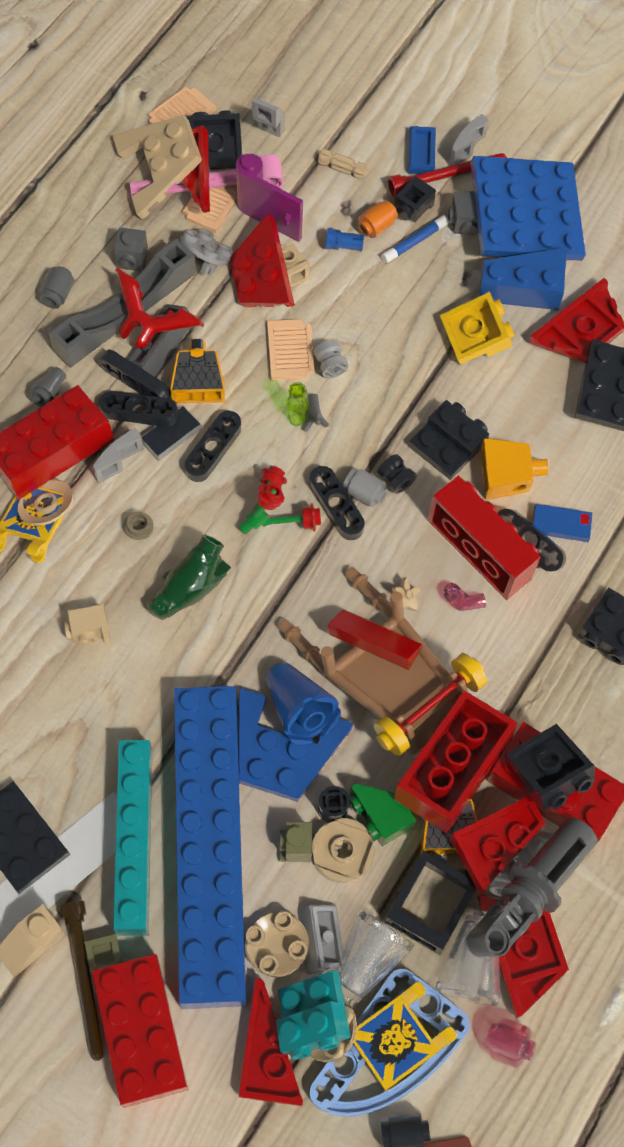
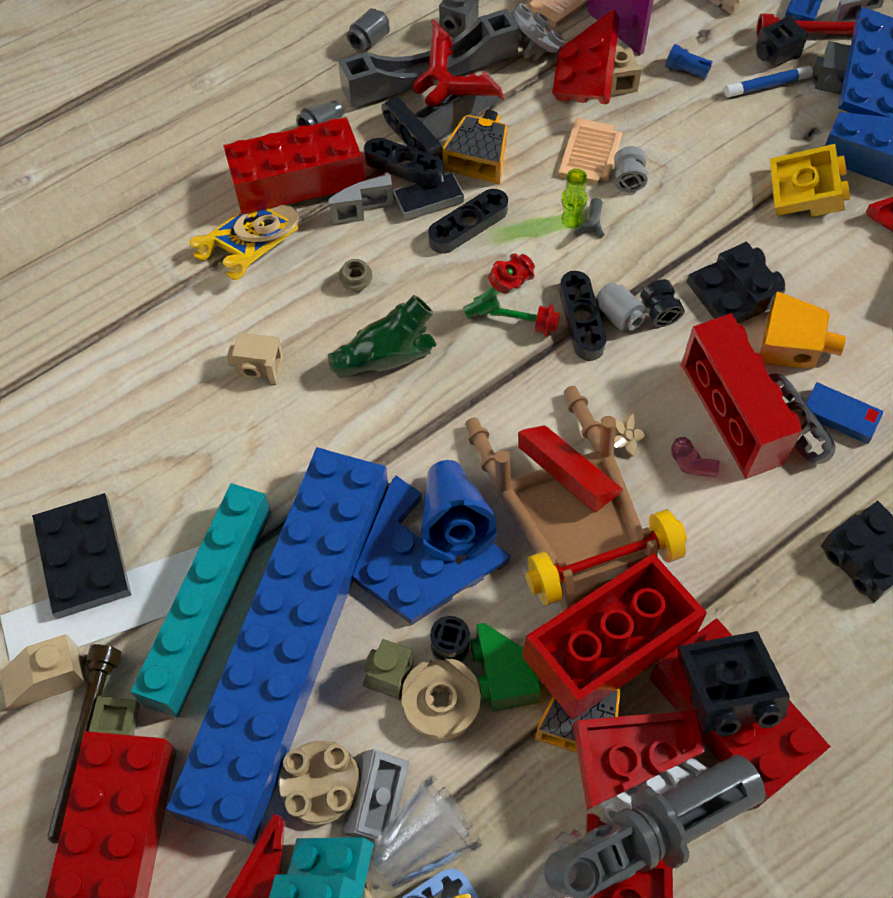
camera: 25 degrees right, 5 degrees down
(377, 219) = (733, 50): orange brick -> none
(413, 928) = (492, 826): black window -> none

